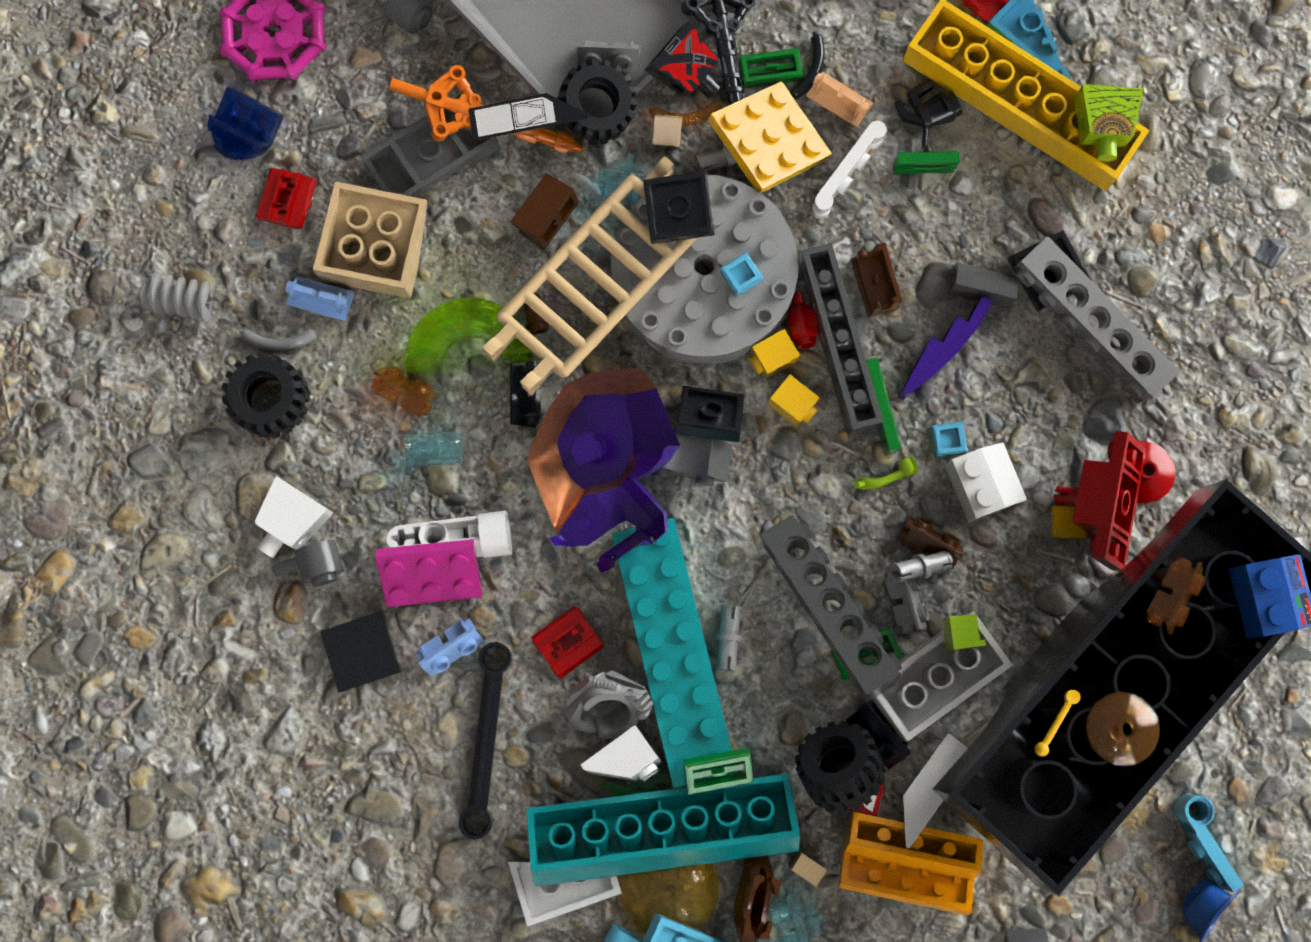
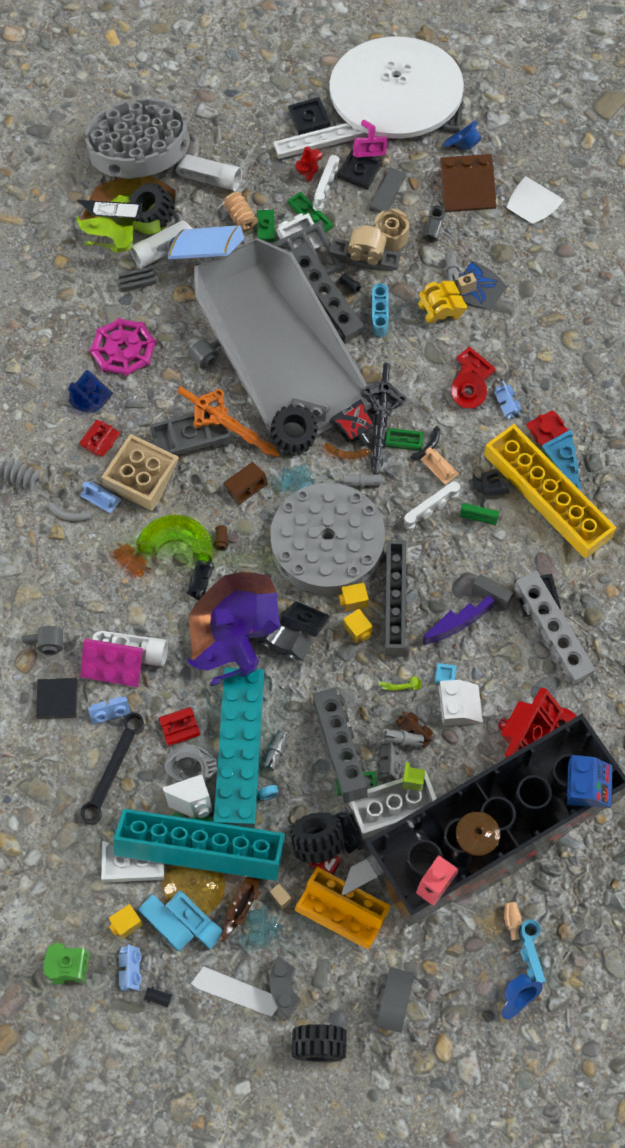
camera: 20 degrees right, 15 degrees down
(248, 378) = (47, 527): black tyre -> none
(288, 517) = (41, 610): white torso -> none
(434, 448) = (137, 595): clear light blue hips -> none
(521, 115) = (247, 425): sticker -> none
(550, 362) = (219, 562): tan bar -> none
(667, 130) = (331, 457): tan piece -> none
(678, 207) = (320, 495): black tile -> none
(718, 765) = (224, 822): green tile -> none
(739, 710) = (268, 792): none -> medium azure tile
(741, 274) = (346, 543): medium azure tile -> none
(769, 137) = (390, 475): yellow plate -> none
(802, 323) = (377, 584): red plant -> none
(876, 280) = (429, 572): reddish brown hinge -> none
(887, 430) = (409, 643): green tile -> none
(1062, 524) = (499, 743): yellow tile -> none
(1070, 697) = (452, 808): yellow hinge -> none
(1090, 831) = (437, 880): none -> coral torso
(1107, 117) = (590, 512): lime torso -> none
(1164, 802) = (512, 919): none -> light nougat piece
(1172, 608) = (538, 760): clear orange hinge -> none

